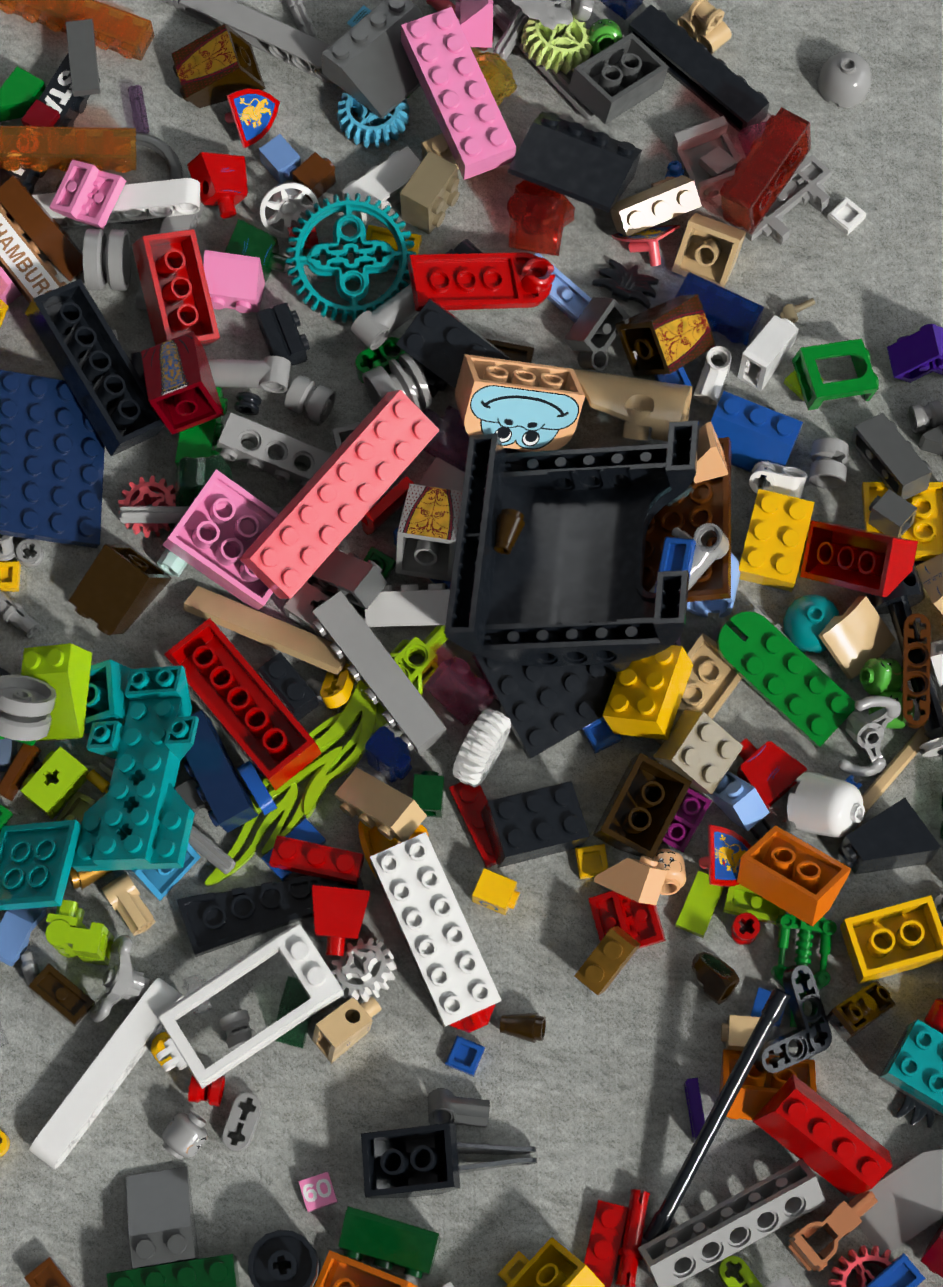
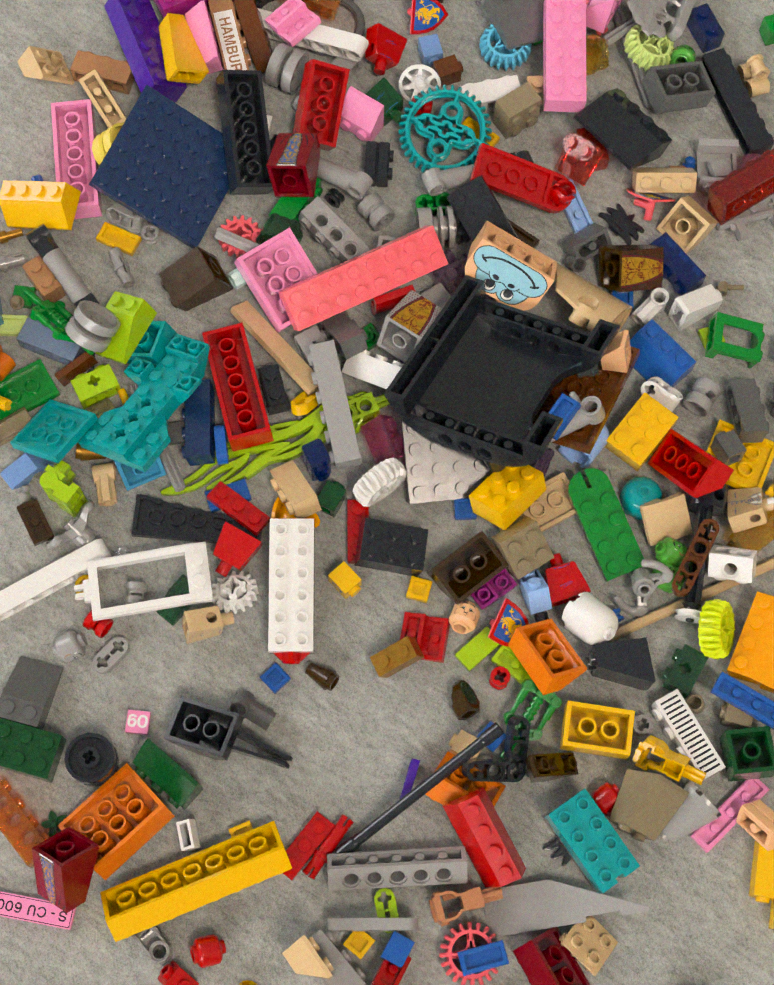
camera: 20 degrees right, 0 degrees up
(508, 528) = (461, 346): dark brown cone -> none
(635, 879) = (440, 612): light nougat slope -> none

